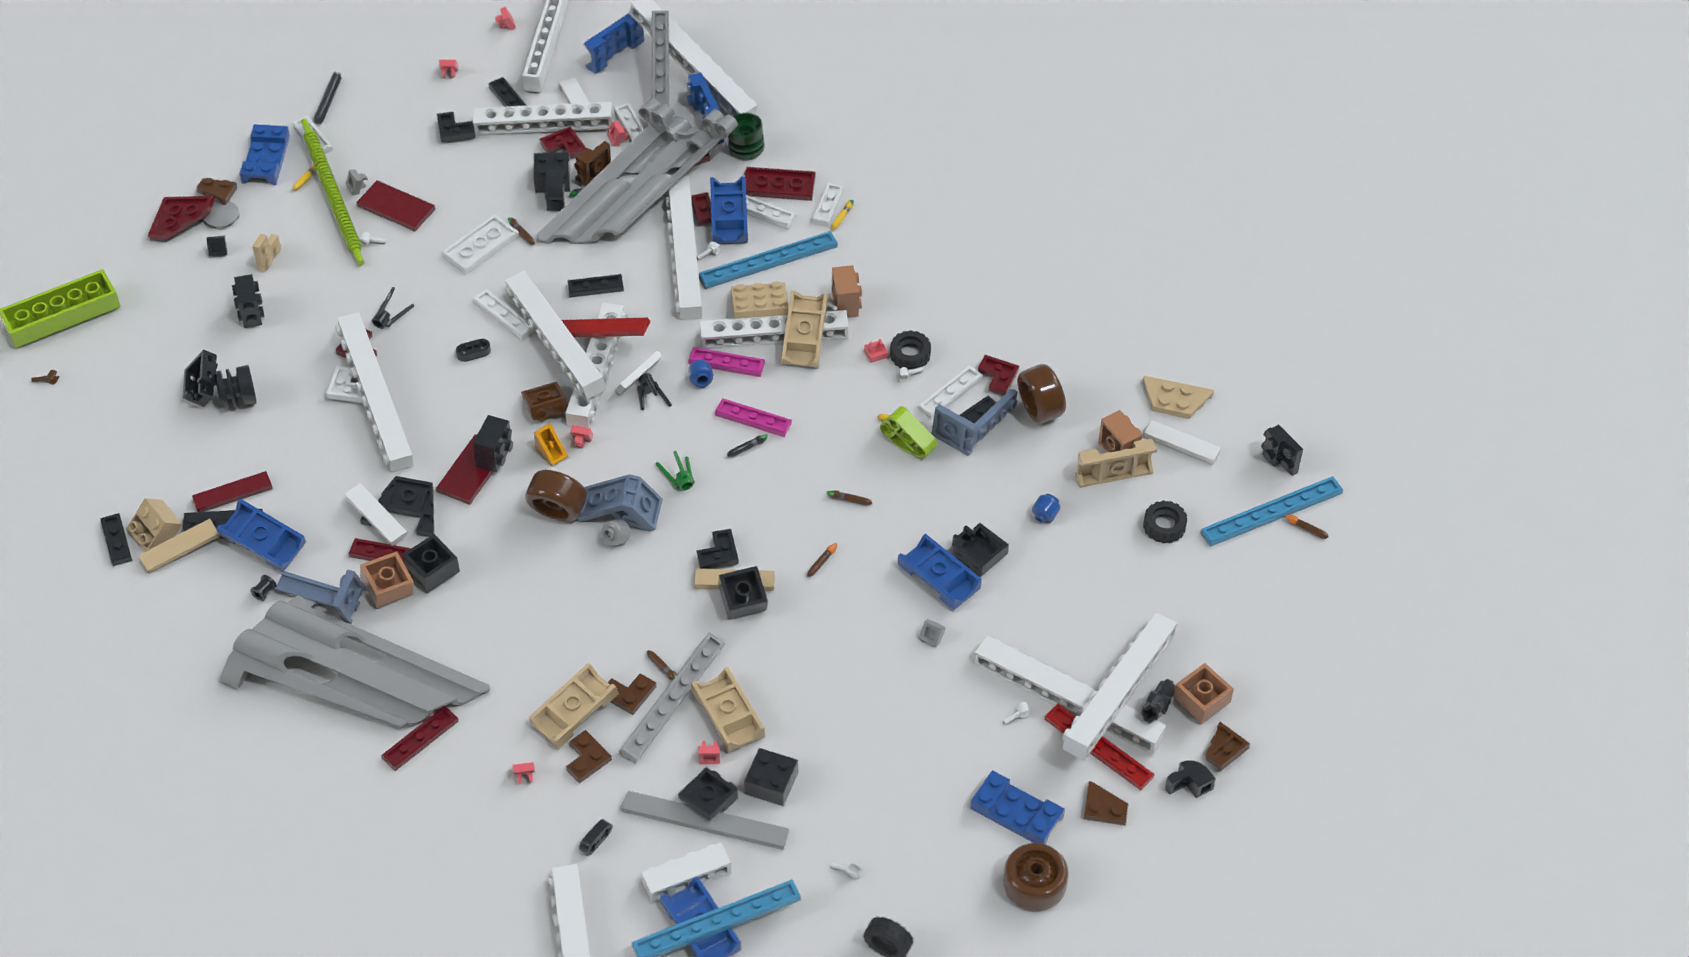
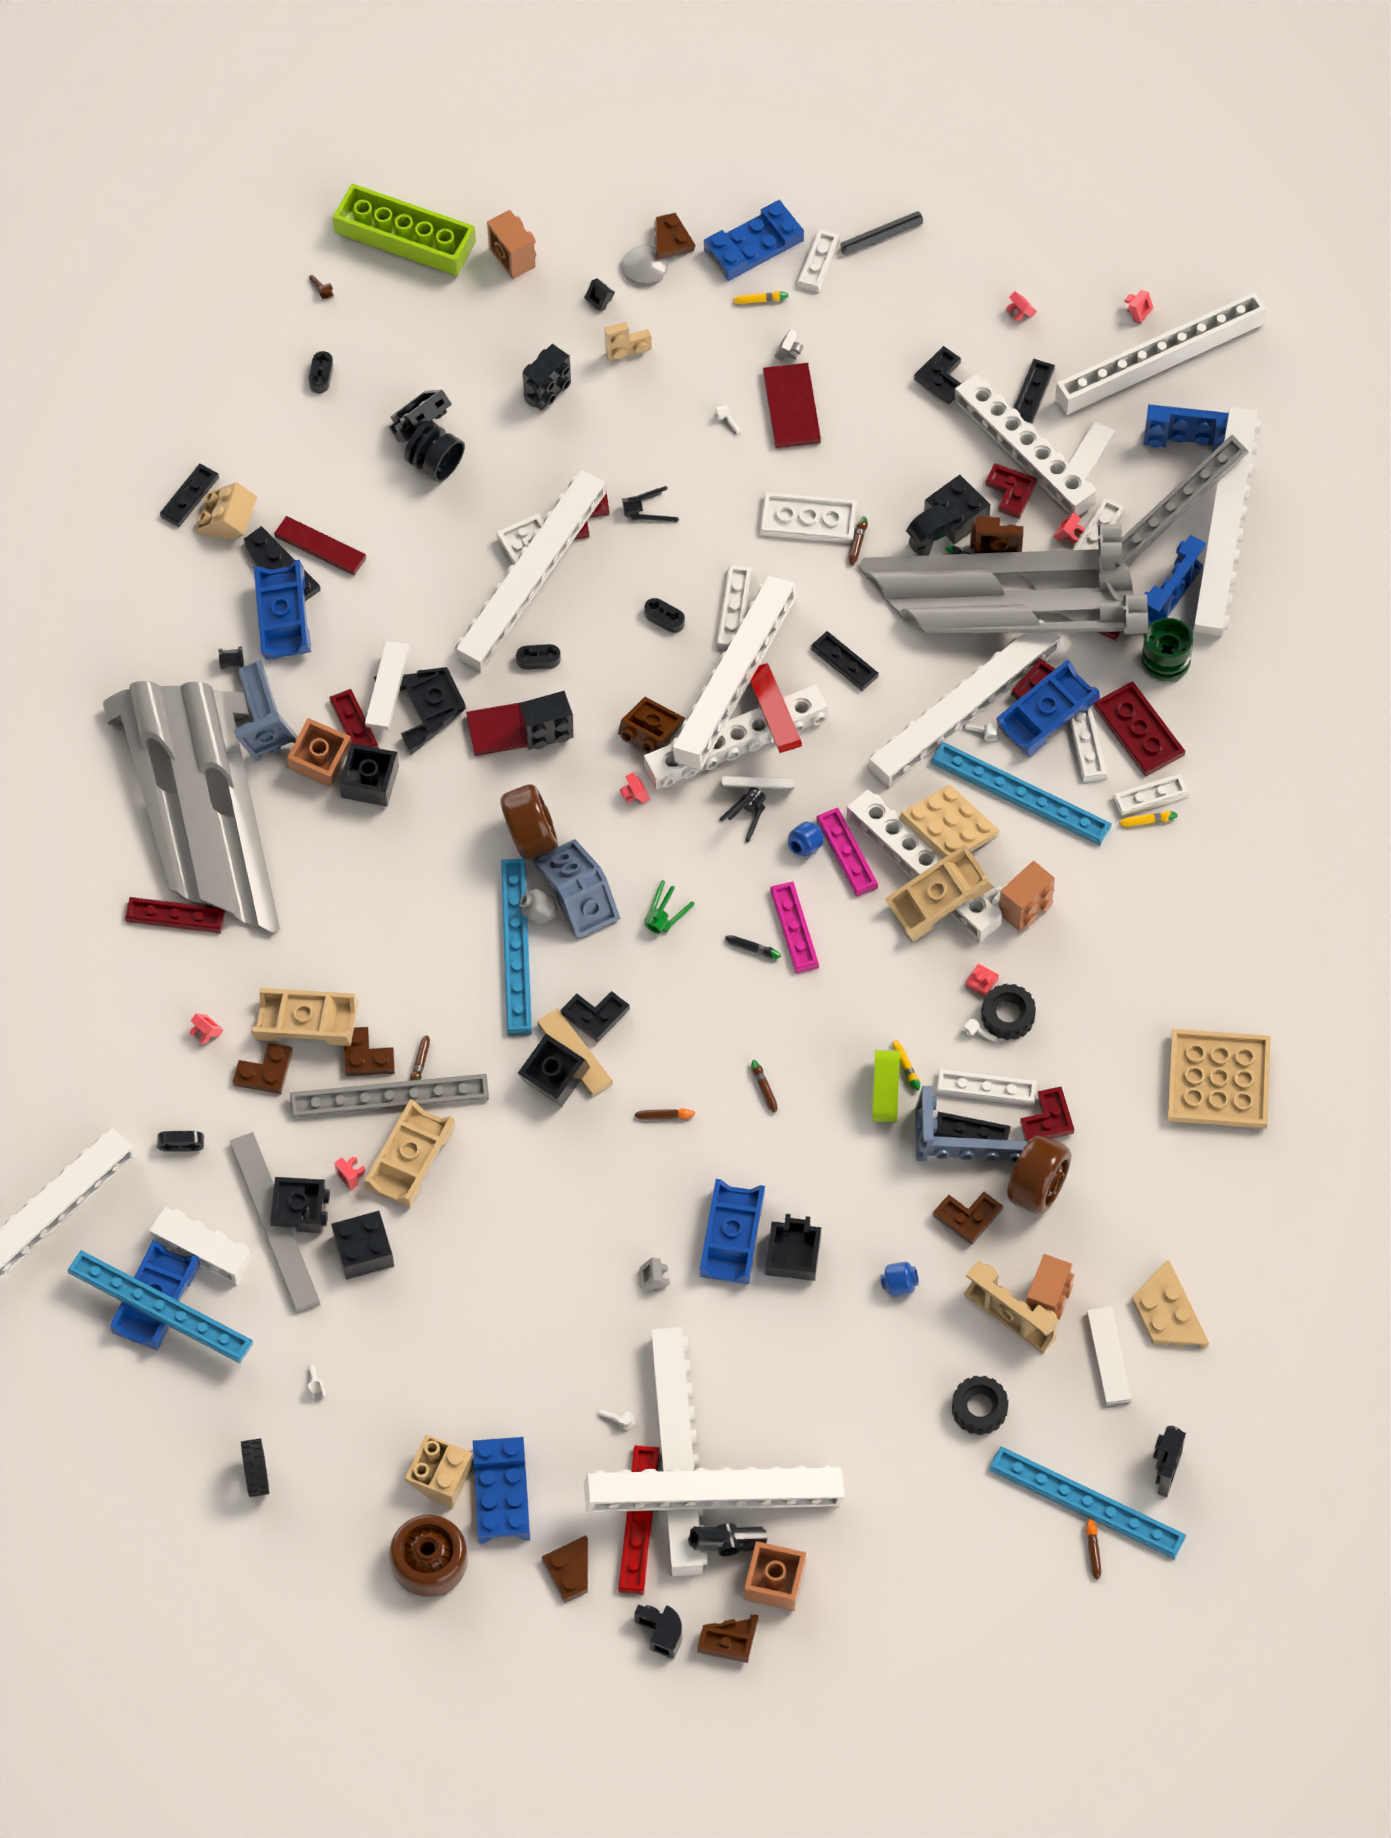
camera: 55 degrees right, 10 degrees up
(105, 417) = (325, 372): none -> black beam
(134, 262) = (511, 243): none -> nougat brick
(178, 214) = (607, 230): dark red plate -> none
(179, 545) = (219, 551): tan tile -> none
(332, 192) = (755, 336): lime hose -> none
(437, 429) = (538, 656): none -> black beam
(549, 445) = (598, 770): light orange slope -> none
(629, 565) = (516, 948): none -> dark azure tile
(979, 831) = (440, 1470): none -> tan slope
(1034, 453) = (968, 1222): none -> reddish brown plate
(1044, 283) = (1219, 1078): none -> tan plate

